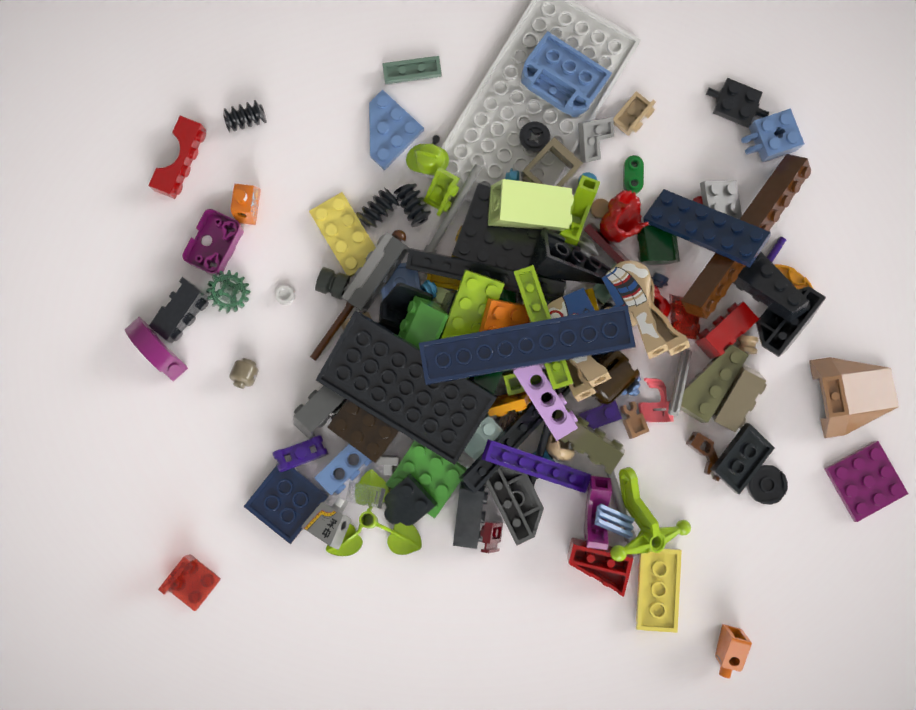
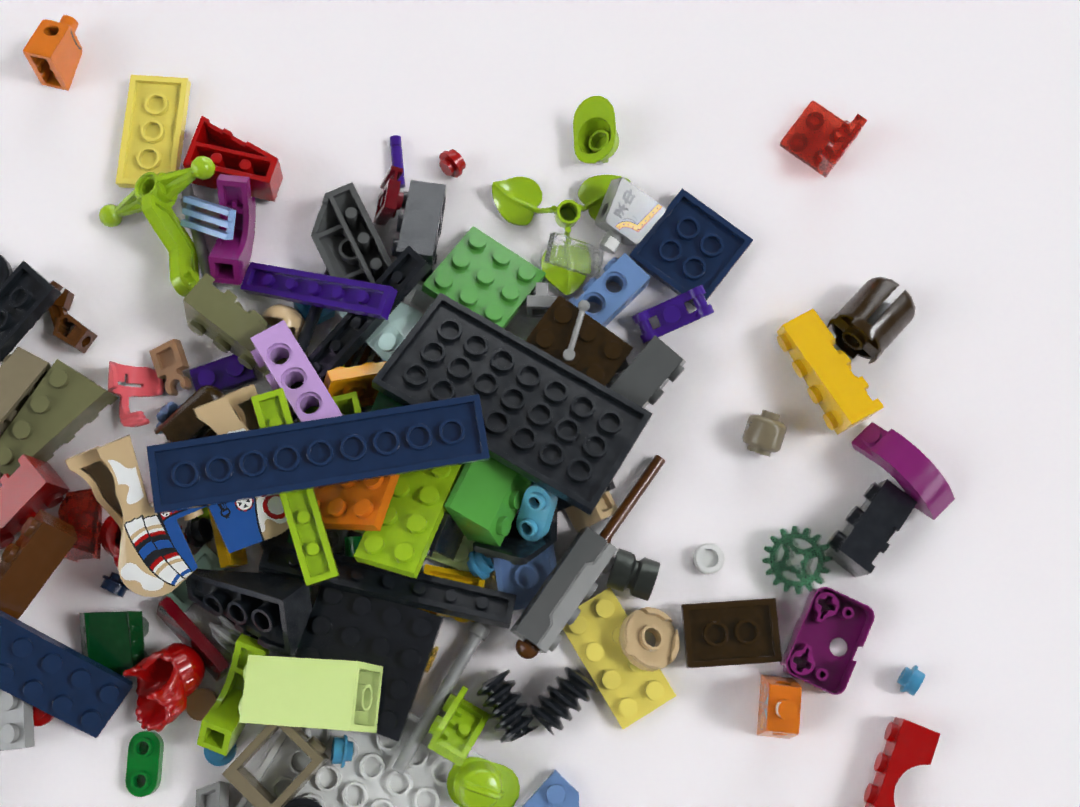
camera: 175 degrees left, 5 degrees down
(163, 219) = (910, 680): none -> dark azure plate
(166, 449) = (869, 341): none -> dark brown cylinder
(200, 412) = (826, 372): none -> yellow wedge
(272, 248) = (731, 633): none -> dark brown plate
(333, 241) = (634, 644): none -> tan tile
(349, 586) = (595, 130): none -> lime piece
(369, 420) = (569, 354): none -> light grey hinge
(392, 316) = (536, 515): none -> medium azure plate
(407, 502) = (511, 245): black plate -> none
(449, 564) = (452, 163): none -> red plate
(488, 569) = (397, 156): none -> dark purple wheel
(680, 381) = (96, 406): light grey axle -> none

